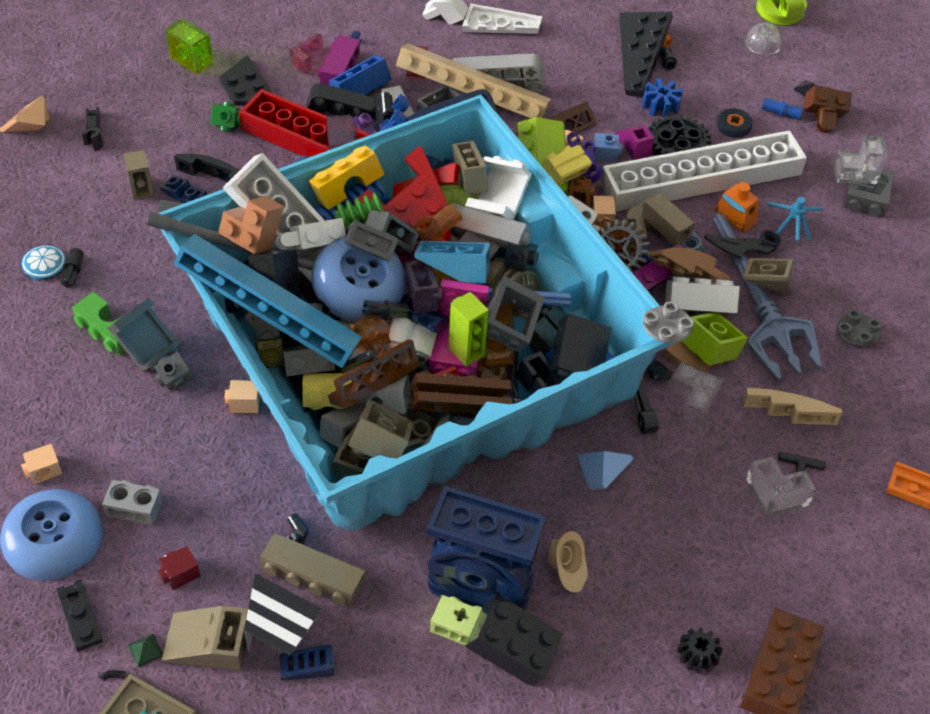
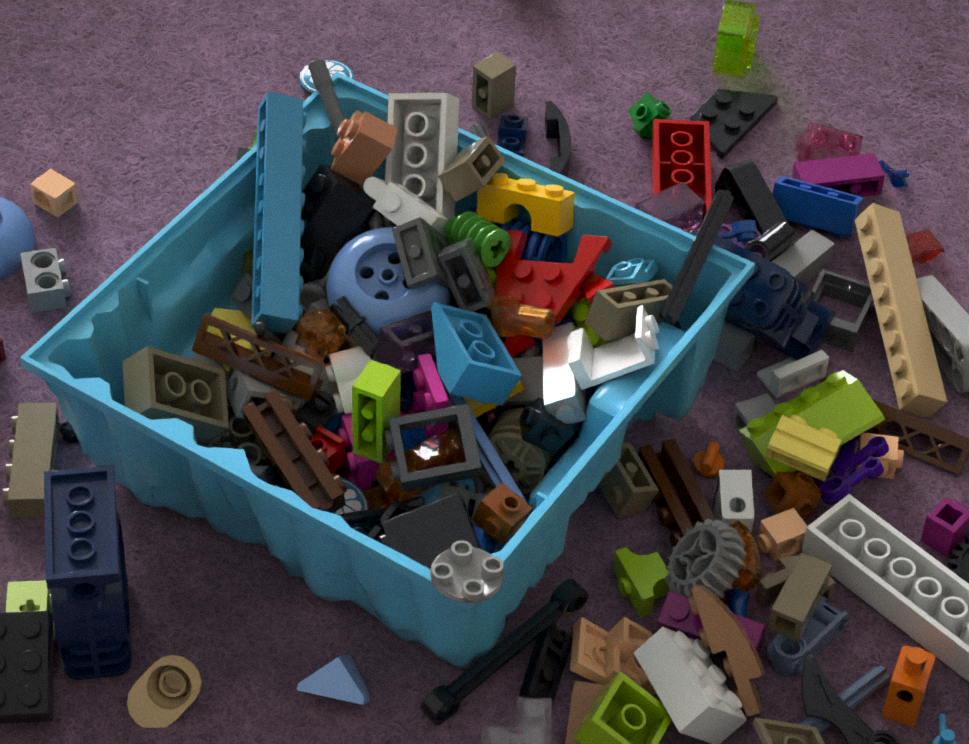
camera: 65 degrees right, 5 degrees down
(92, 133) = (535, 30): black piece -> none
(312, 183) = (471, 168): none -> dark tan brick
(438, 155) = (632, 272): none -> medium azure slope
(459, 115) = (696, 257): none -> black axle
(580, 303) = (502, 513): none -> dark orange brick
(607, 147) = (910, 497): medium blue brick -> none

